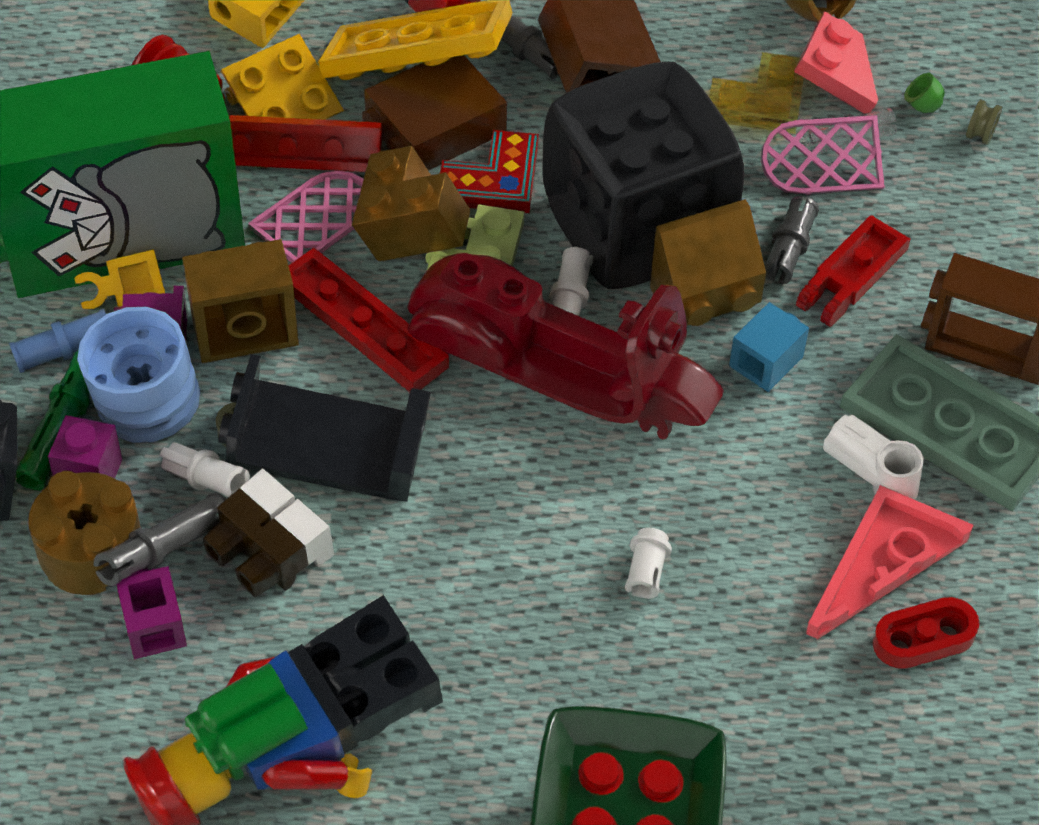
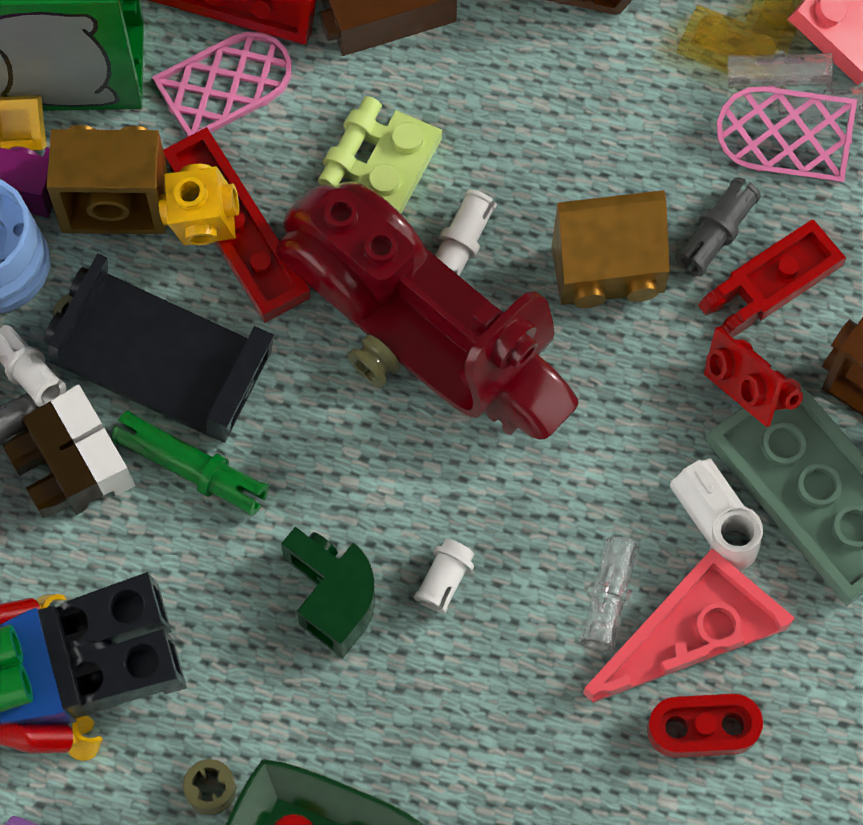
camera: 15 degrees right, 15 degrees up
(332, 300) = (199, 205): none -> yellow brick
(396, 523) = (208, 472): none -> green pin
(407, 208) = (313, 103): pearl gold brick -> none
(472, 798) = (194, 794): none -> olive bush
(506, 178) = (428, 87): red tile -> none
(525, 402) = (374, 361): none -> olive bush
(557, 591) = (344, 594): none -> dark green brick
(632, 159) = (565, 117): black piece -> none
(768, 346) = (650, 354): dark azure brick -> none
(801, 546) = (609, 594): none -> clear pin
(802, 106) = (780, 70): none -> clear pin
(864, 341) = (749, 378): none -> red hinge

